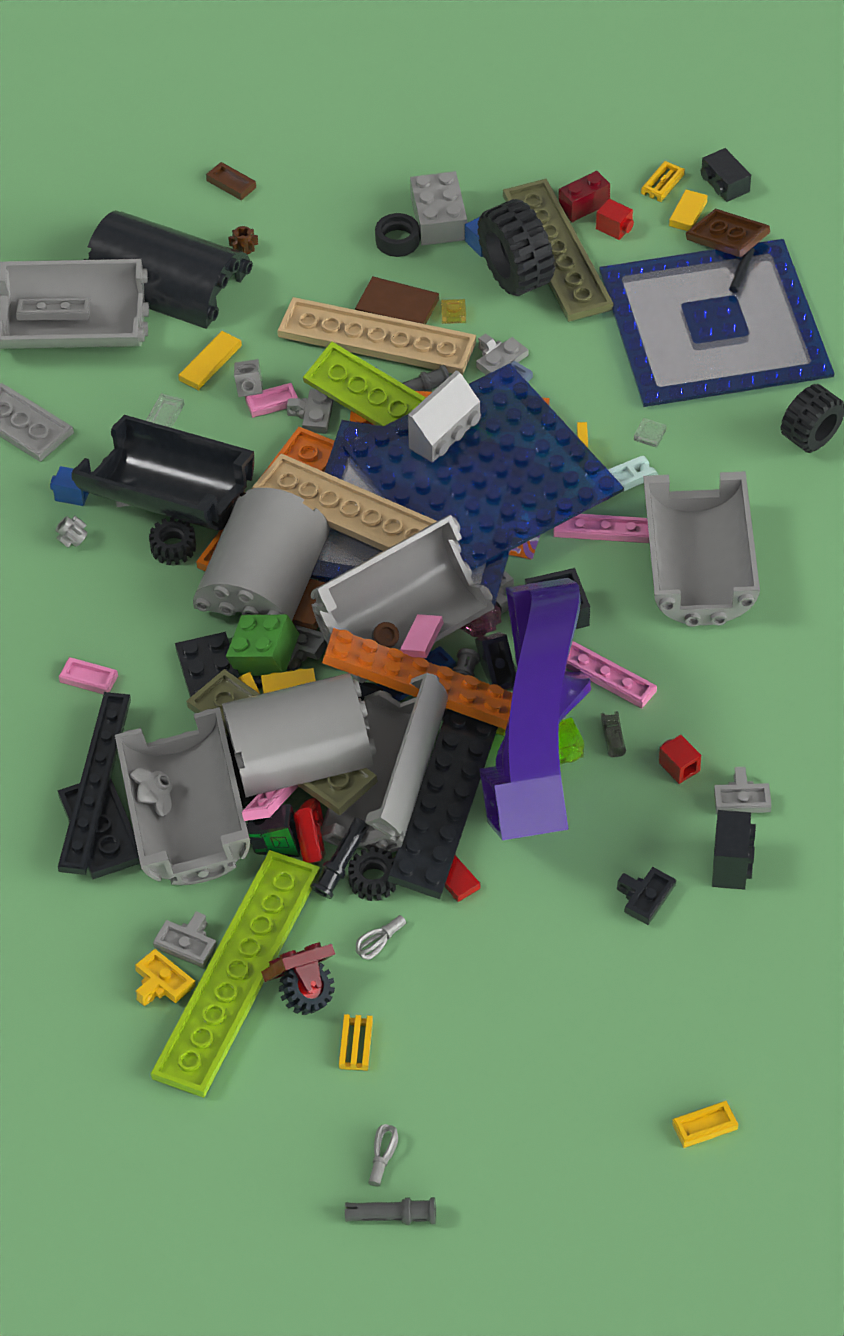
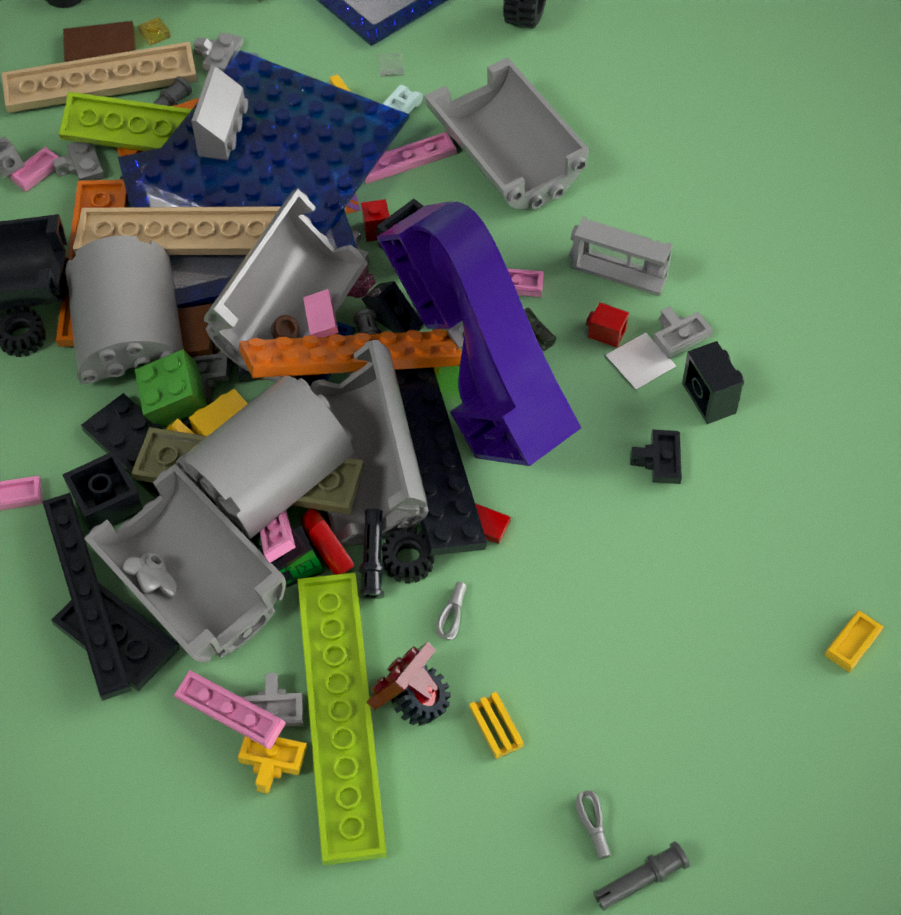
camera: 30 degrees left, 5 degrees up
(151, 925) = (230, 709): none -> bright pink tile
(157, 705) = (103, 491): none -> black brick
(533, 566) = (372, 215): none -> red brick
(690, 804) = (640, 360): none -> white sticker
(730, 702) = (620, 256): none -> light grey door

